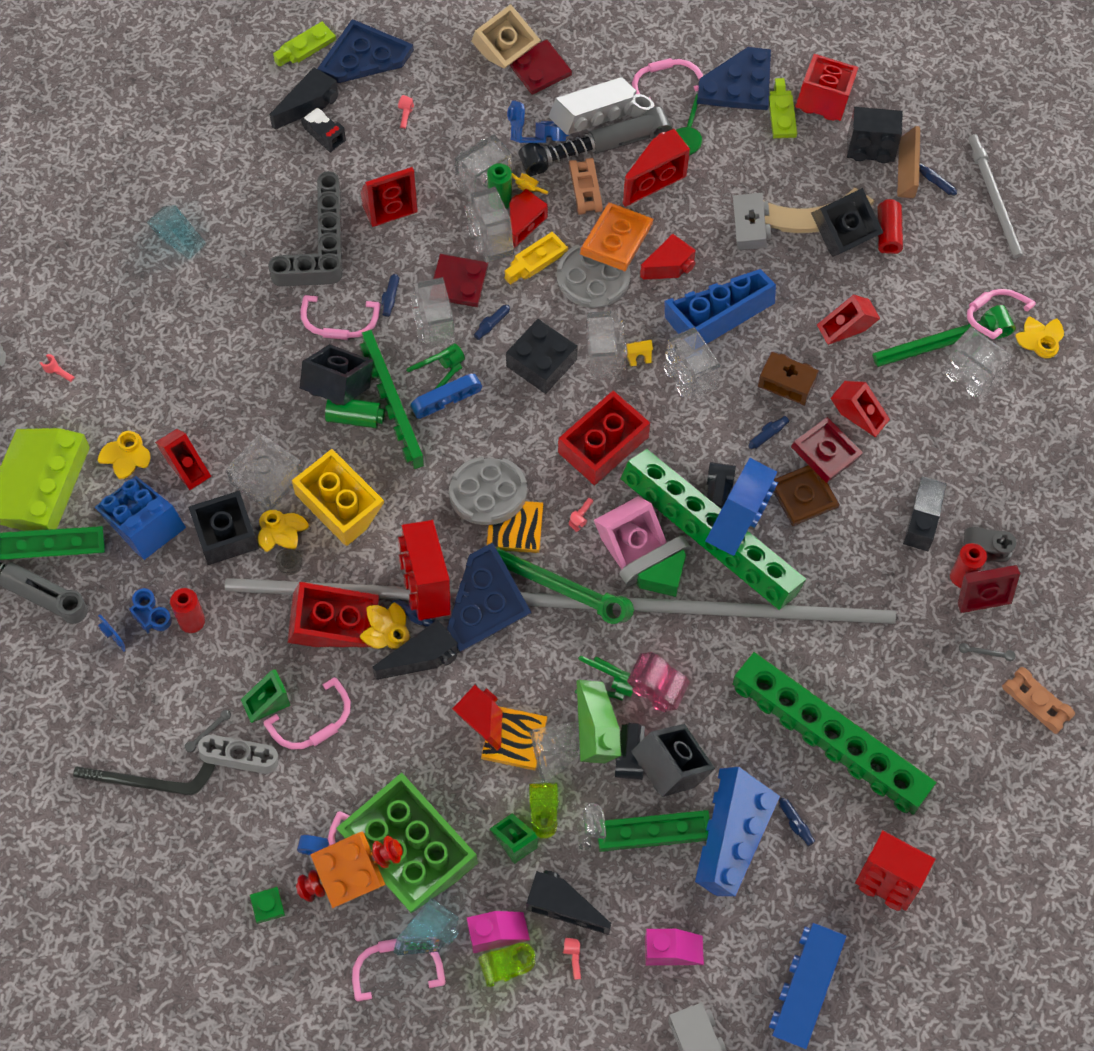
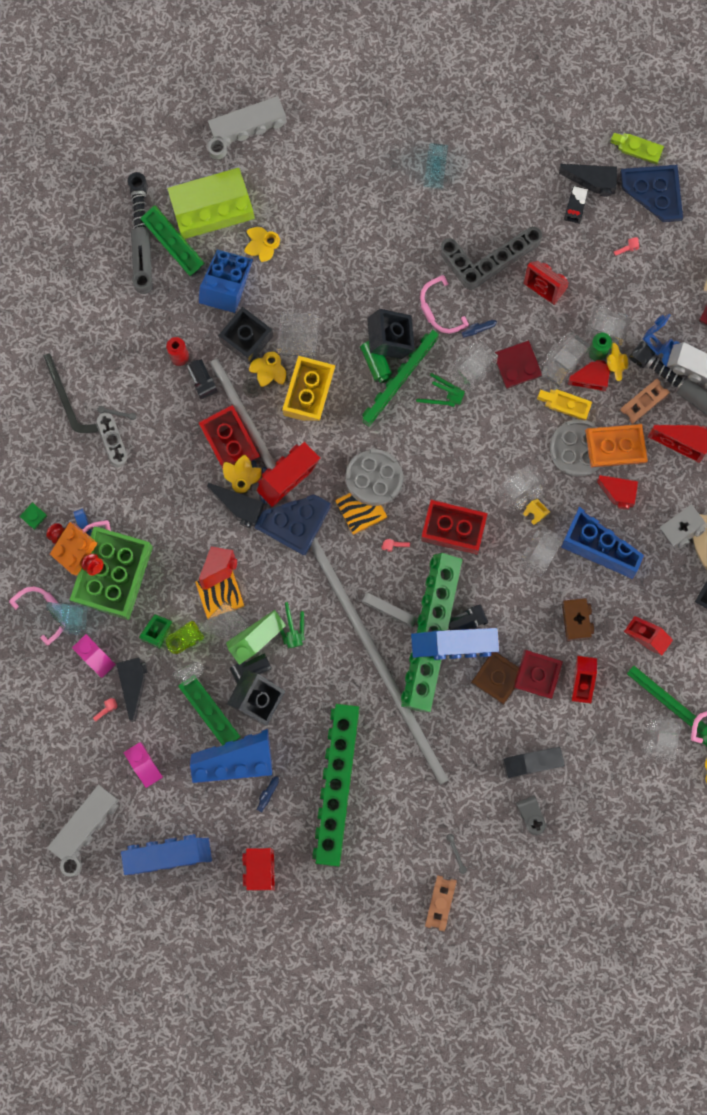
camera: 65 degrees right, 15 degrees up
(54, 367) = (294, 159): coral hand -> none
(144, 615) = (163, 327): blue piece -> none
(183, 458) = (279, 279): red slope -> none
(244, 608) = (203, 382): none -> black piece
(265, 697) = (155, 433): green slope -> none
(321, 735) = (153, 480): bright pink piece -> none
(451, 392) = (420, 407): blue beam -> none
(489, 323) = (498, 403): dark blue piece -> none
(501, 963) = (76, 671): clear neon green piece -> none
(541, 356) = (491, 452): black brick -> none
(602, 603) = (335, 601): green piece -> none
(630, 531) = (398, 583): bright pink slope -> none
(658, 682) = (303, 659): clear pink brick -> none
(664, 576) = (382, 623): green slope -> none
(768, 431) = (531, 629): dark blue piece -> none
(971, 558) = (499, 815): red brick -> none
(988, 588) = (491, 827): dark red plate -> none

